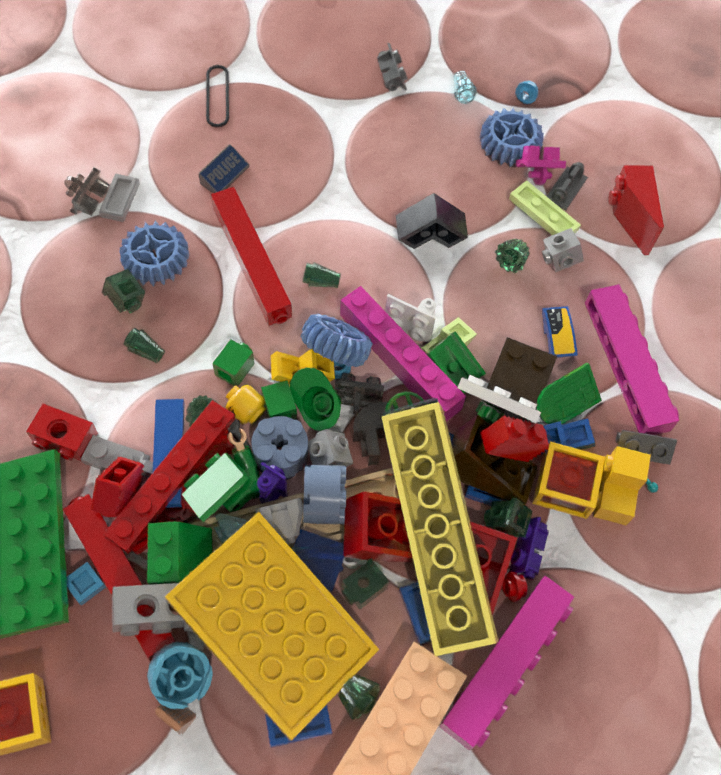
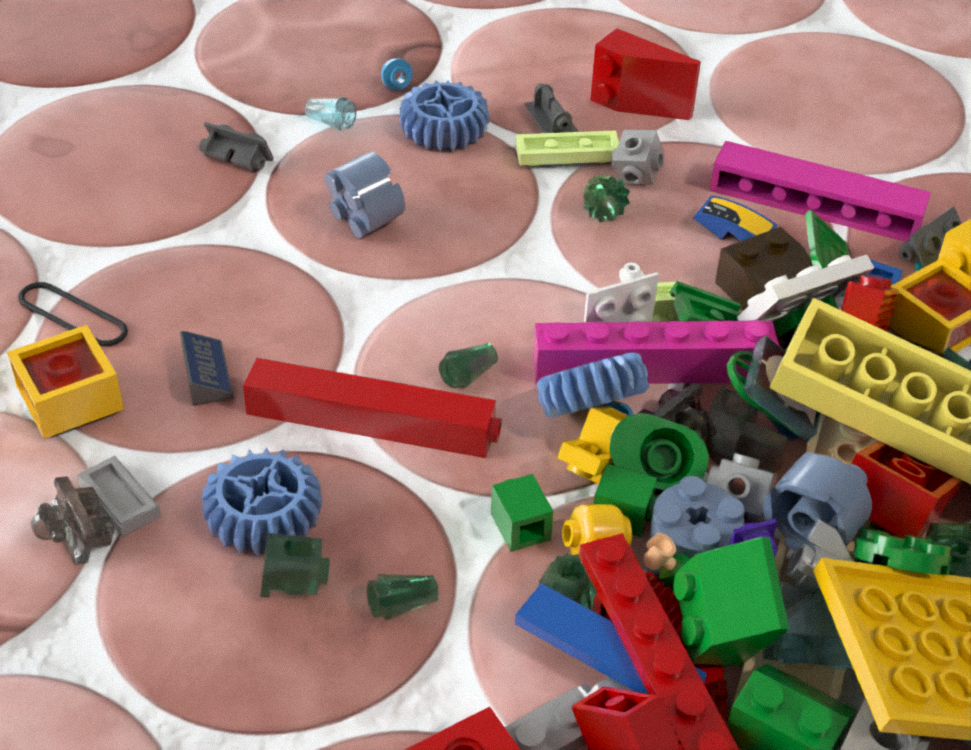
camera: 50 degrees left, 20 degrees down
(158, 126) = (65, 381): none -> yellow piece
(330, 559) = (909, 554): none -> green plate
(398, 147) = (364, 194): none -> sand blue brick
(431, 220) = (498, 226): black brick -> none
(550, 160) = (504, 108): dark pink hips -> none

